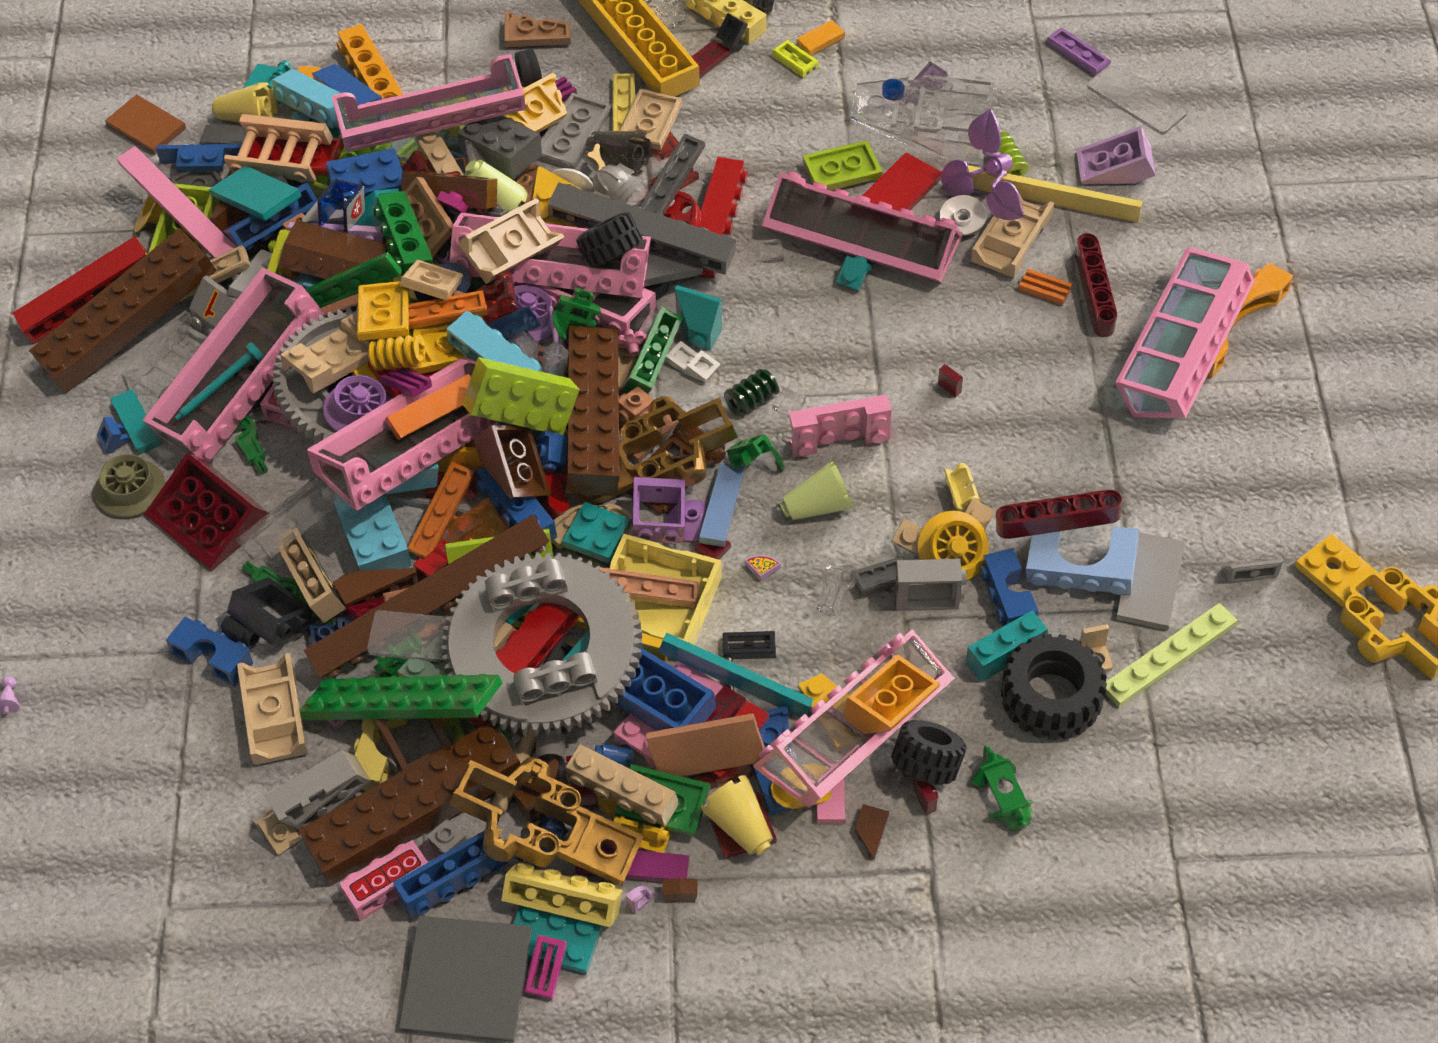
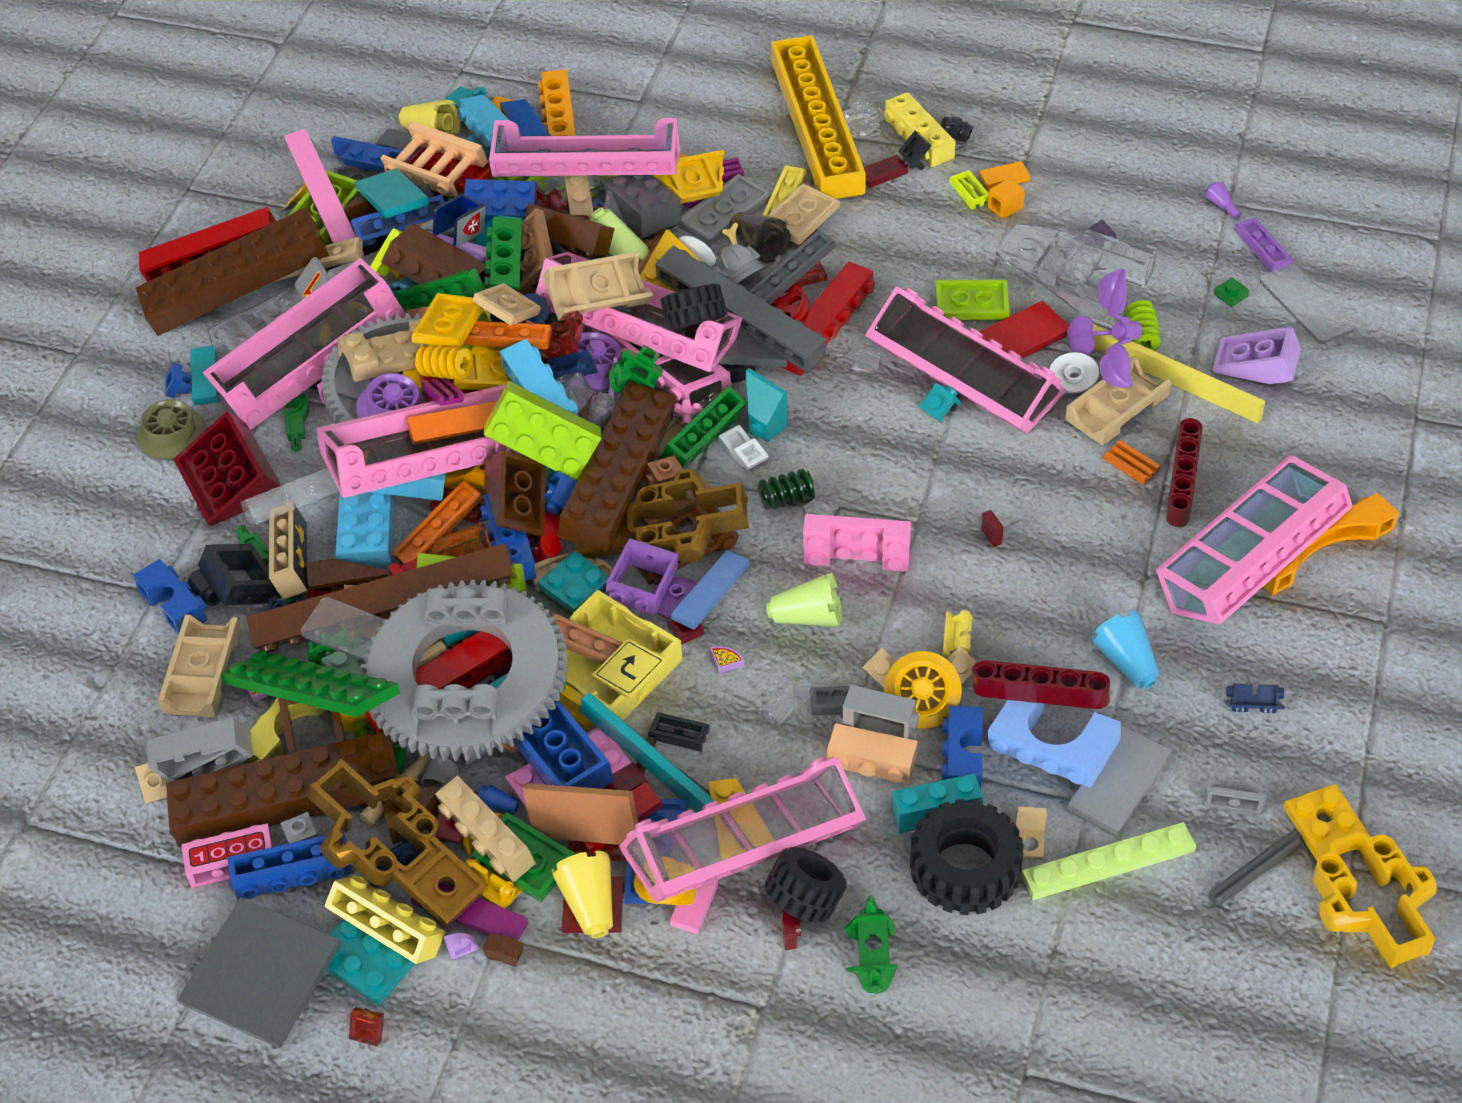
camera: 20 degrees right, 5 degrees down
(145, 123) = (336, 116): dark orange tile -> none
(218, 382) = (324, 334): teal piece -> none
(453, 201) = (563, 238): dark pink plate -> none
(527, 67) = (703, 138): black tyre -> none
(533, 32) = (724, 111): medium nougat wing -> none
(556, 968) = (351, 983): dark pink tile -> none
(588, 997) = (366, 1026): none -> clear red tile
(686, 599) = (629, 668): none -> light yellow piece
(748, 450) = (762, 542): green piece -> none
(833, 60) = (1006, 198): none -> light orange brick
(871, 827) = (721, 945): reddish brown tile -> none
(888, 696) = (783, 814): light orange slope -> none
(893, 89) = (1048, 235): clear blue tile -> none
(932, 616) = (873, 753): none -> light nougat brick
(1021, 12) = (1219, 195): none -> medium lavender cone
(1068, 104) = (1231, 292): none -> green plate
(1115, 461) = (1128, 648): none -> medium azure cone
(1246, 475) = (1243, 697): none -> dark blue hinge
(1292, 627) = (1254, 869): none -> dark grey axle

